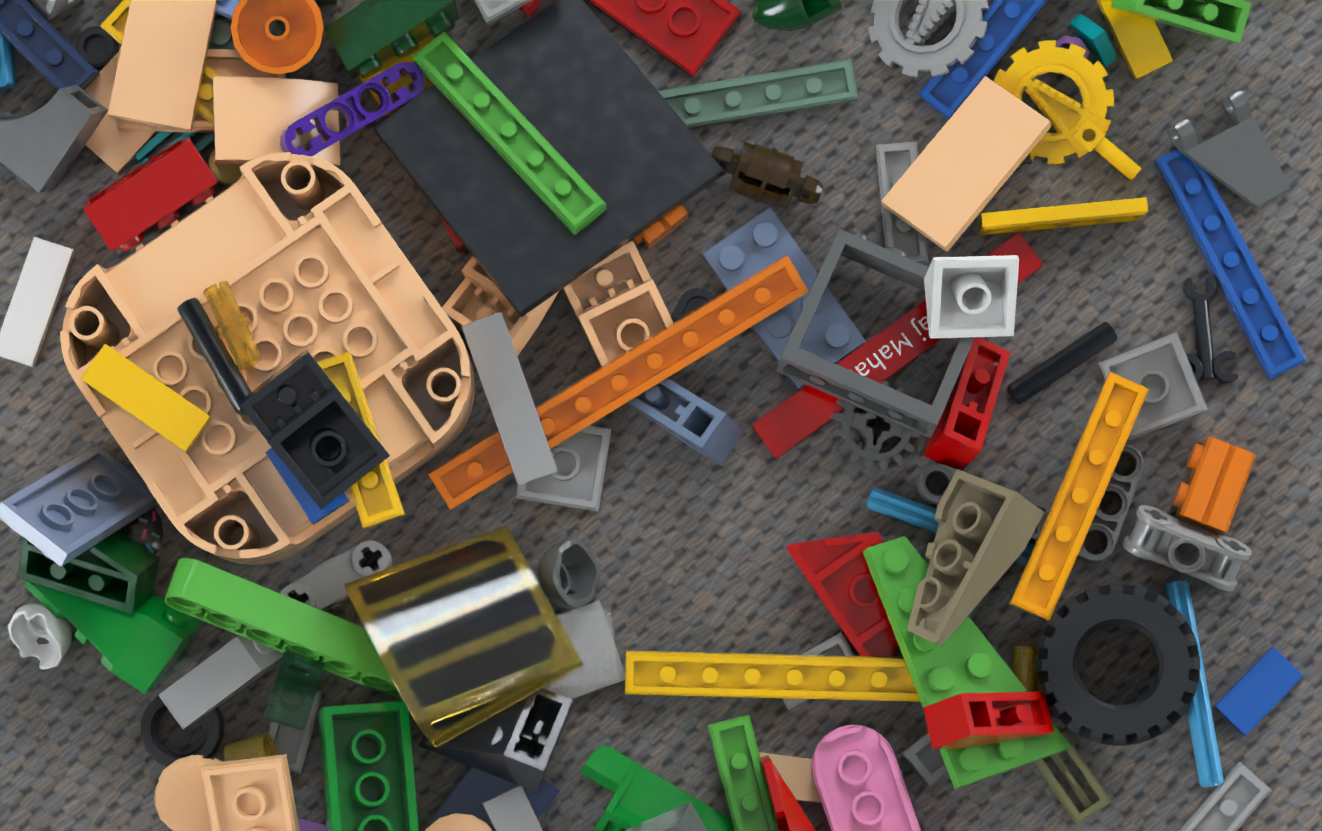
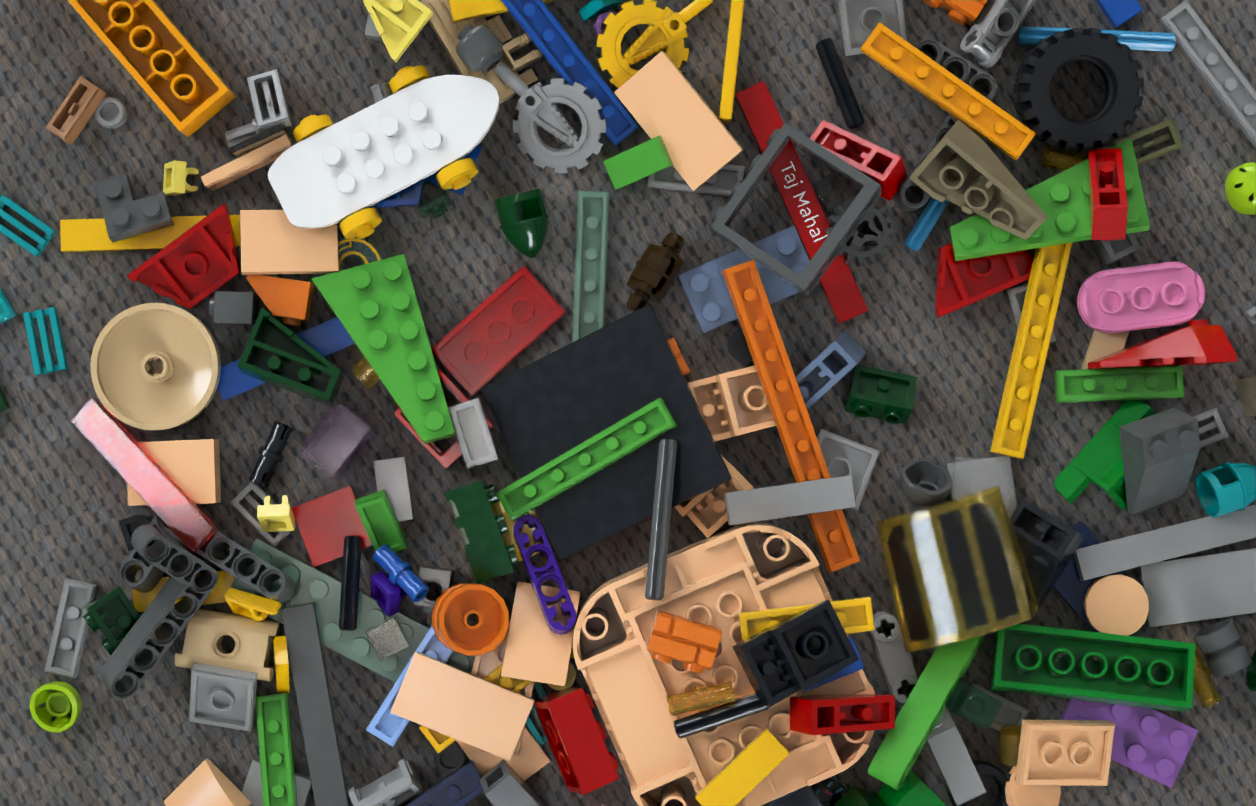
camera: 70 degrees left, 5 degrees up
(248, 506) = (841, 713): none -> red slope
(301, 287) = (684, 641): none -> orange brick
(450, 232) = (661, 520): none -> dark grey axle
(671, 496) = (881, 394): none -> dark green bracket
(902, 125) = (638, 162): none -> bright green tile
(971, 296) = (788, 138): white slope -> none

